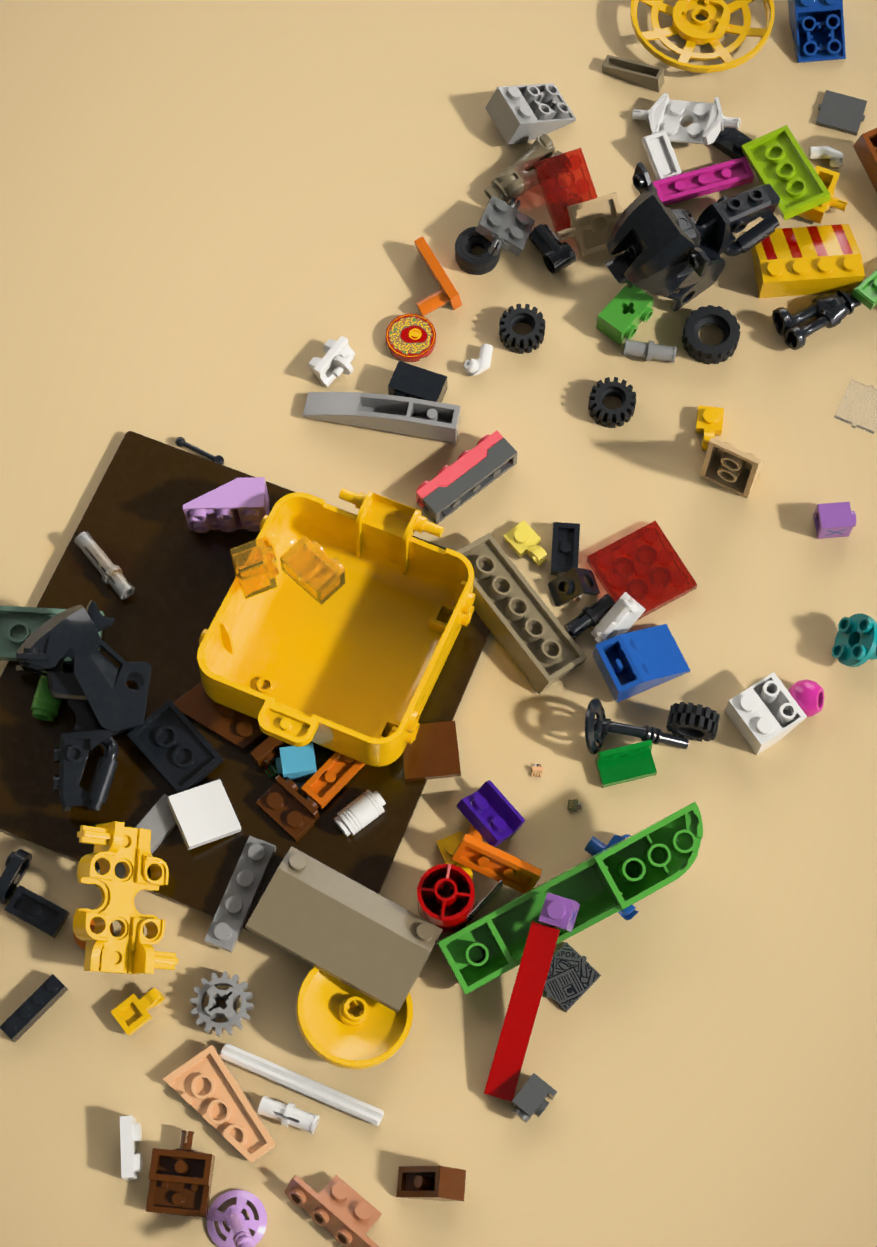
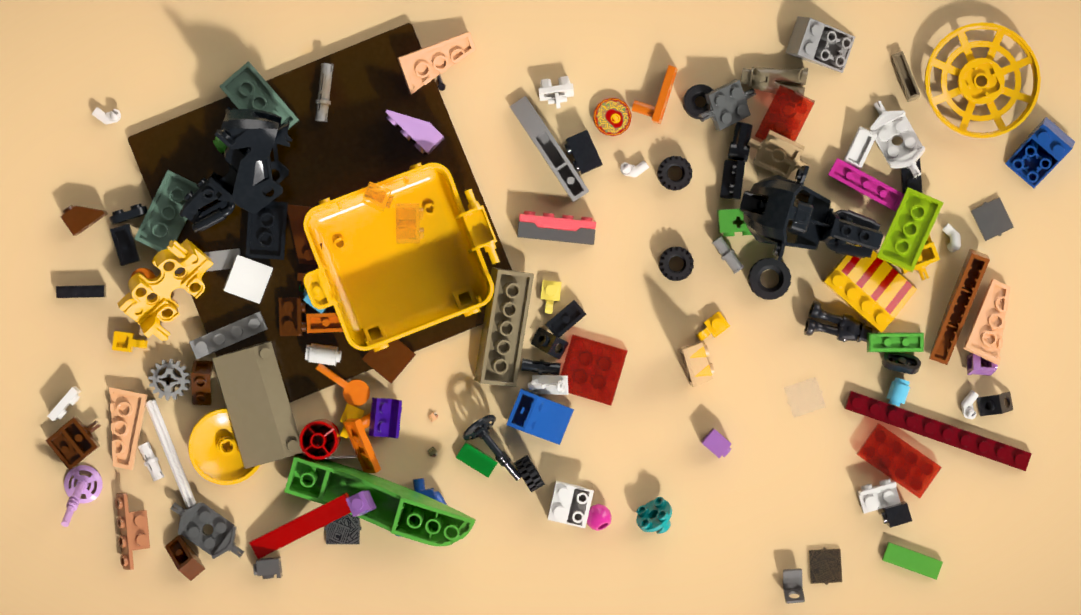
camera: 40 degrees right, 20 degrees up
(49, 832) = (162, 219): none -> sand green plate
(183, 443) = (427, 63): none -> light nougat wing
(262, 973) = (201, 382): none -> reddish brown bracket
(400, 1119) = (192, 525): none -> dark grey plate
(432, 822) = (355, 391): none -> orange piece
(582, 282) = (732, 179): none -> black bracket

